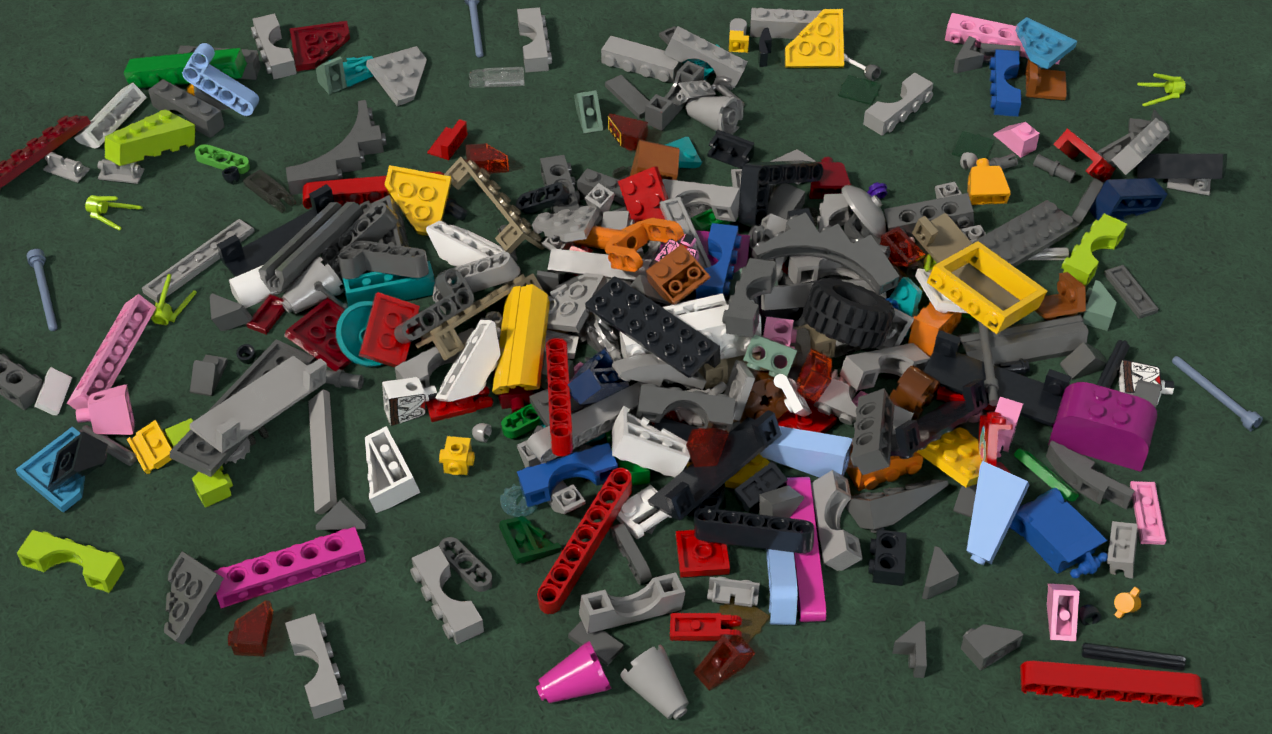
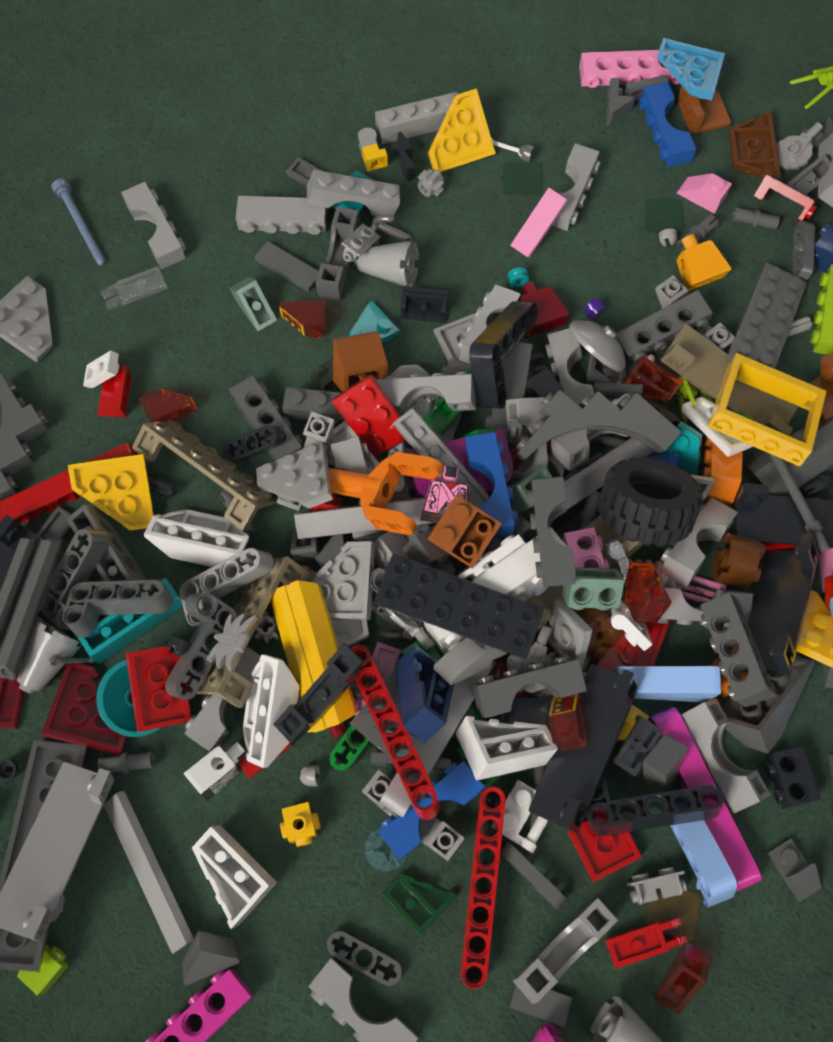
camera: 20 degrees left, 20 degrees up
(418, 302) = (177, 646): none -> black hinge
(447, 118) = (101, 369): none -> white plate
(463, 307) = (232, 640): none -> light grey piece
(516, 359) = (321, 695): none -> black slope
(777, 70) = (430, 182): none -> light grey gear
(822, 149) = (518, 277): none -> teal bush
(856, 118) = (539, 222): none -> bright pink tile
(861, 624) = (794, 869): none -> dark grey slope
(1079, 117) = (755, 147): none -> reddish brown wing
(1114, 129) = (797, 150): none -> light grey piece

